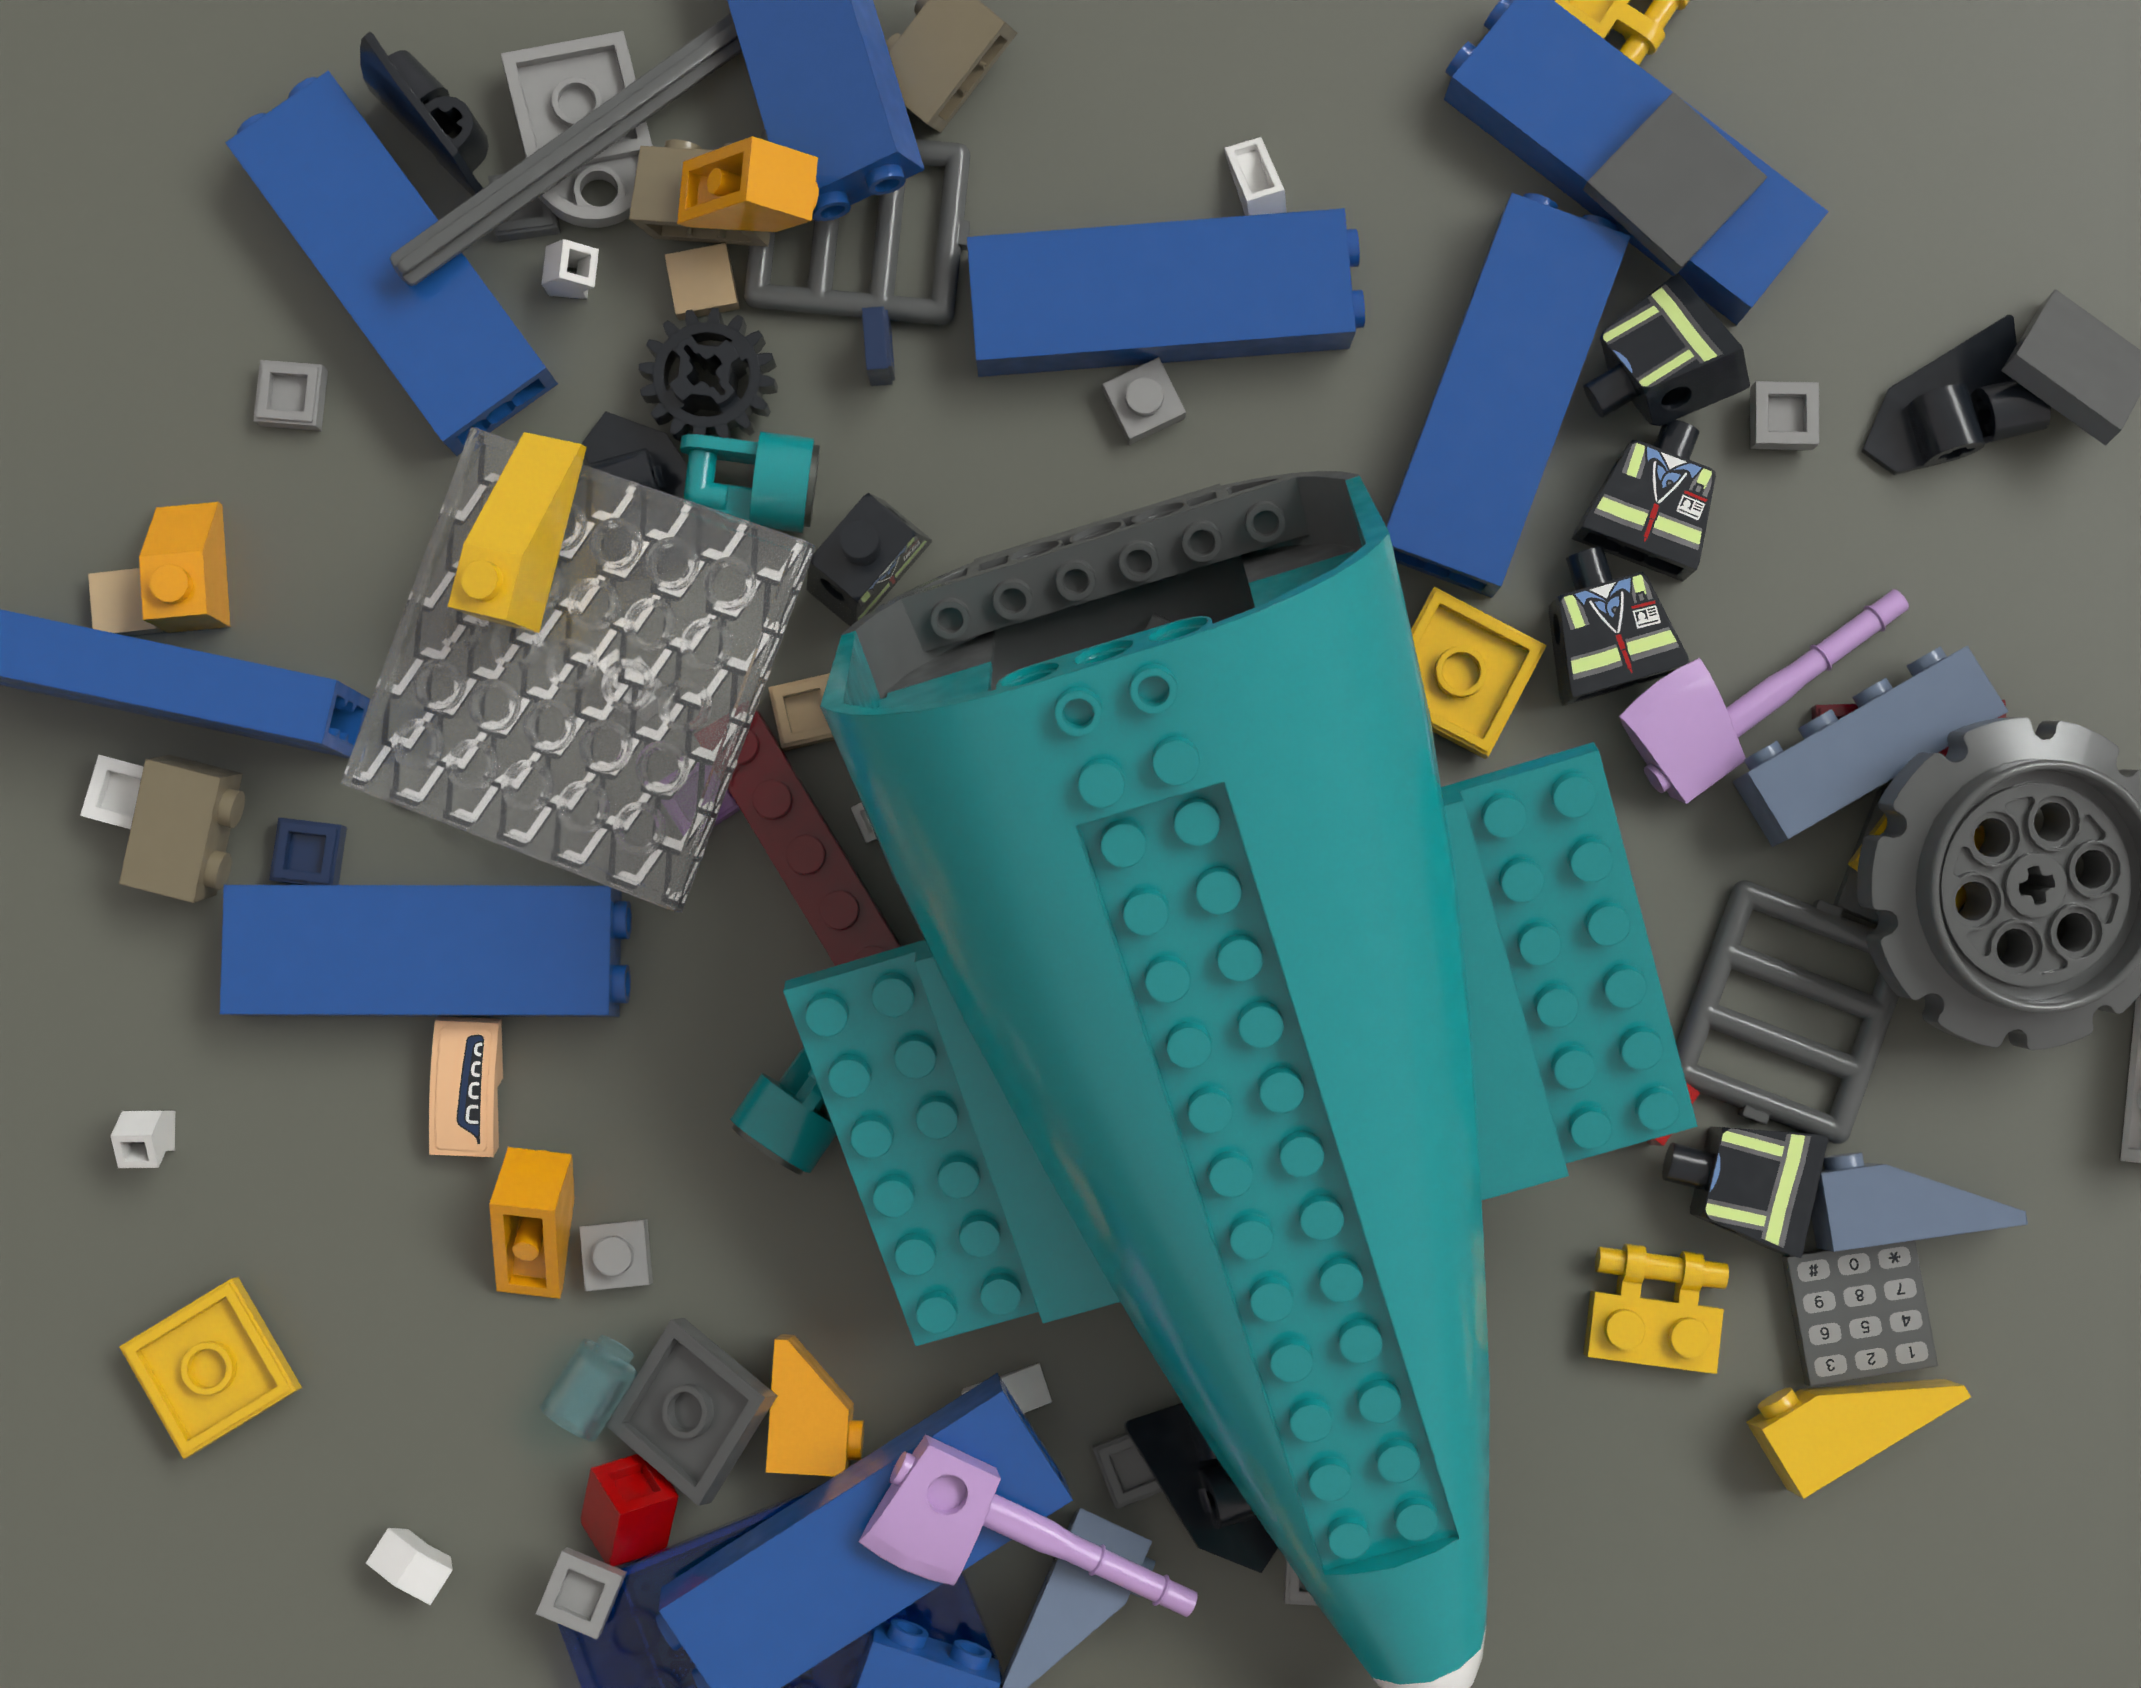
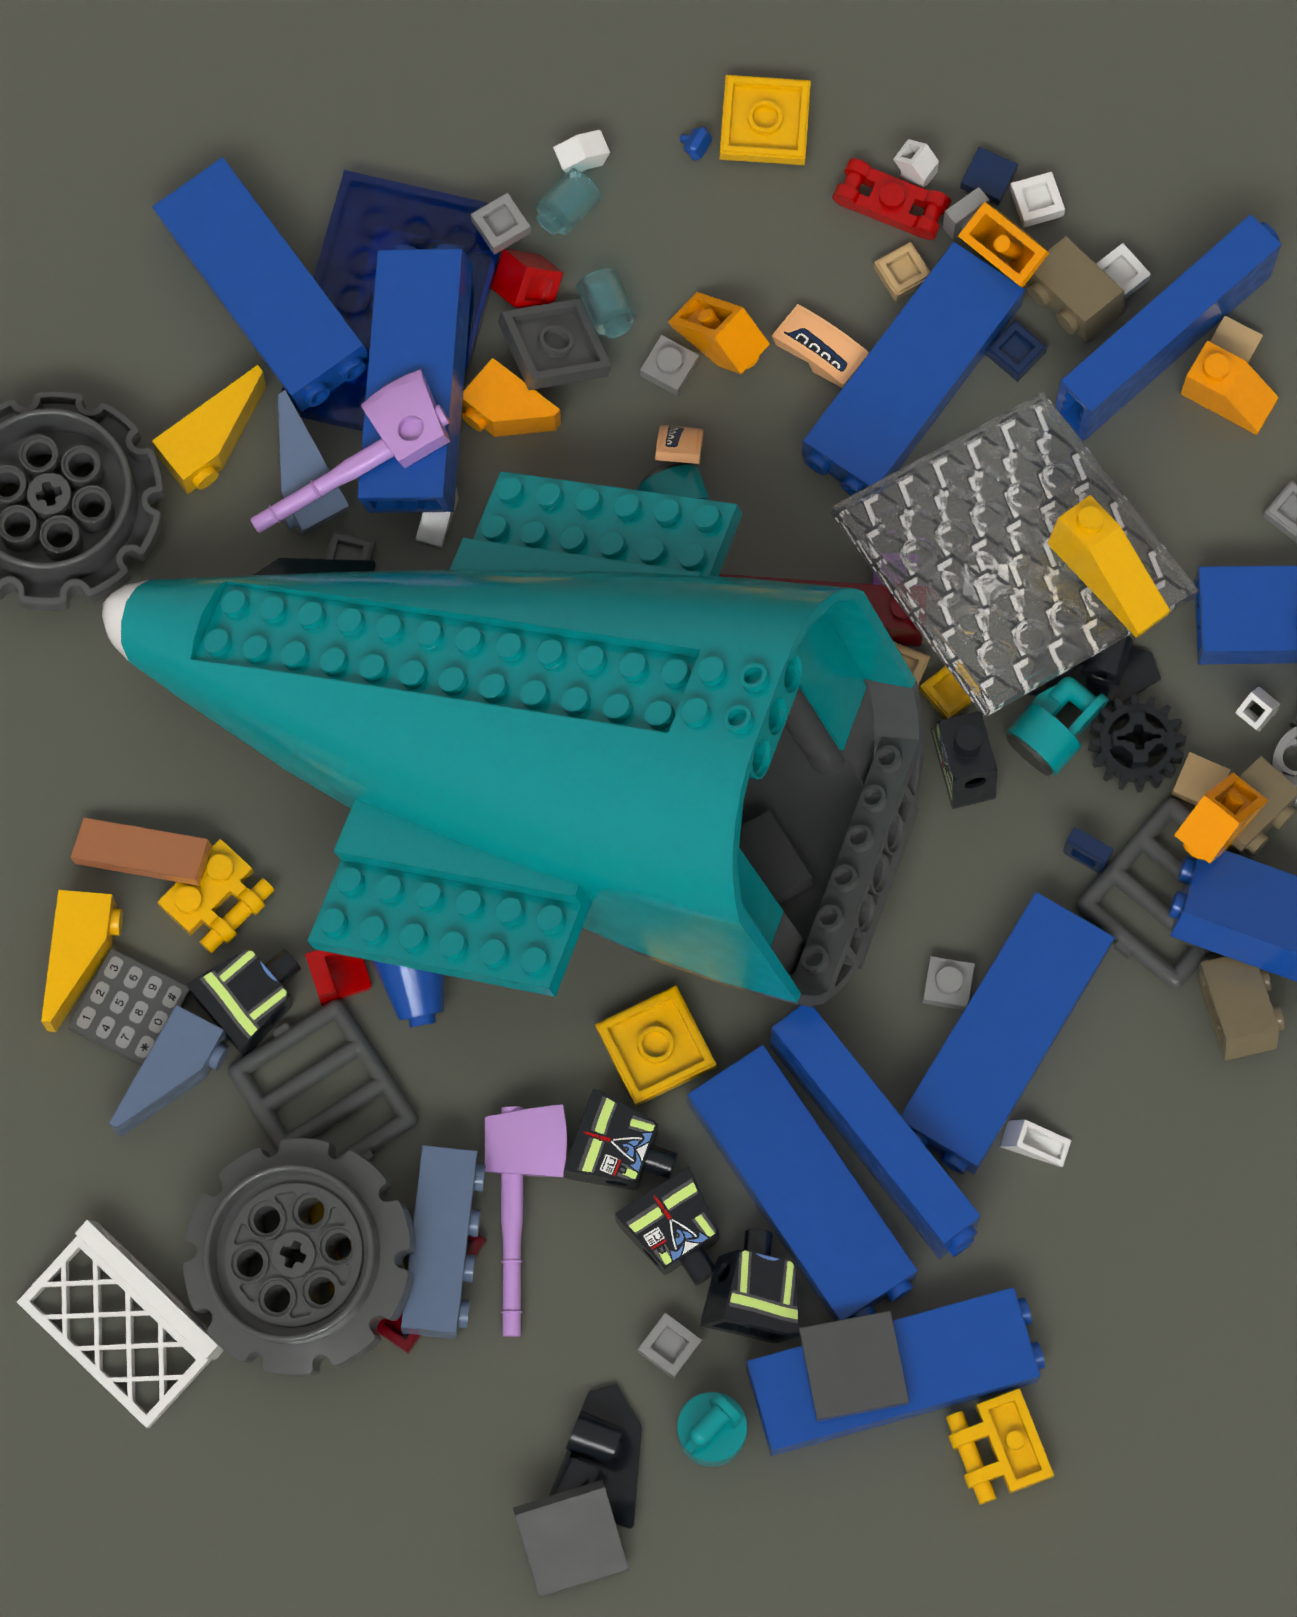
camera: 125 degrees right, 10 degrees down
(91, 959) = (1037, 199): none -> white plate
(99, 1041) = (990, 174): none -> dark blue tile
(171, 1028) = (961, 212): none -> light grey plate
(182, 945) = (1003, 244): none -> light orange slope
(212, 1137) = (891, 200): none -> red plate
(298, 1059) = (902, 271): none -> tan tile
(298, 1432) = (696, 142): none -> blue rock
(491, 1533) = (567, 202): none -> clear light blue brick
(717, 1160) = (679, 444): none -> light nougat slope
(803, 641) = (945, 694): none -> yellow tile
(1400, 314) = (875, 1131): none -> blue brick
(1675, 1438) = (141, 851): none -> nougat tile
(1845, 301) = (711, 1429): none -> teal piece

